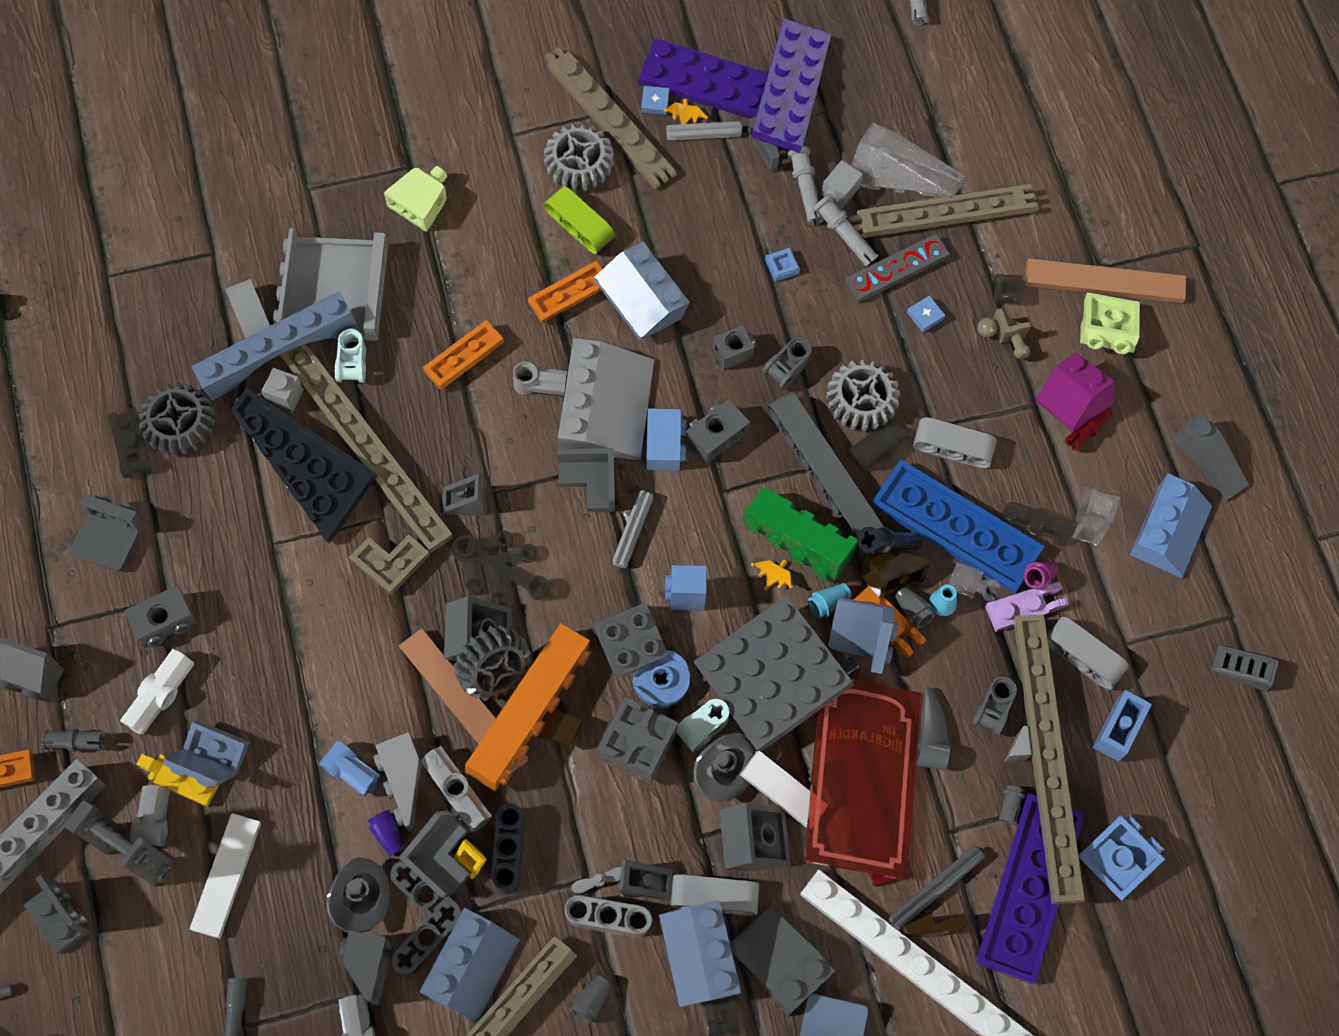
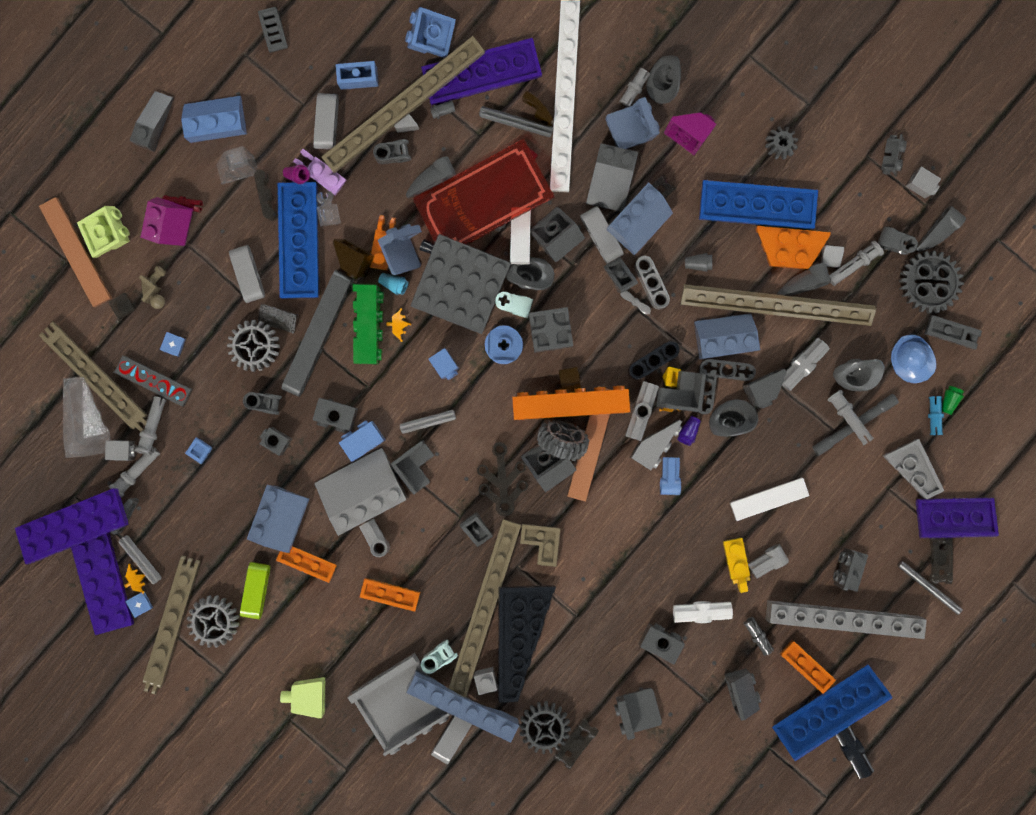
camera: 125 degrees left, 20 degrees up
(107, 836) = (800, 561): dark grey fence -> none
(208, 755) = (718, 556): sand blue bracket -> none
(630, 639) = (494, 377): dark grey bracket -> none
(884, 540) = (340, 270): black pin -> none
(914, 607) = (364, 233): dark grey cone -> none
(944, 600) = (353, 222): medium azure cone -> none

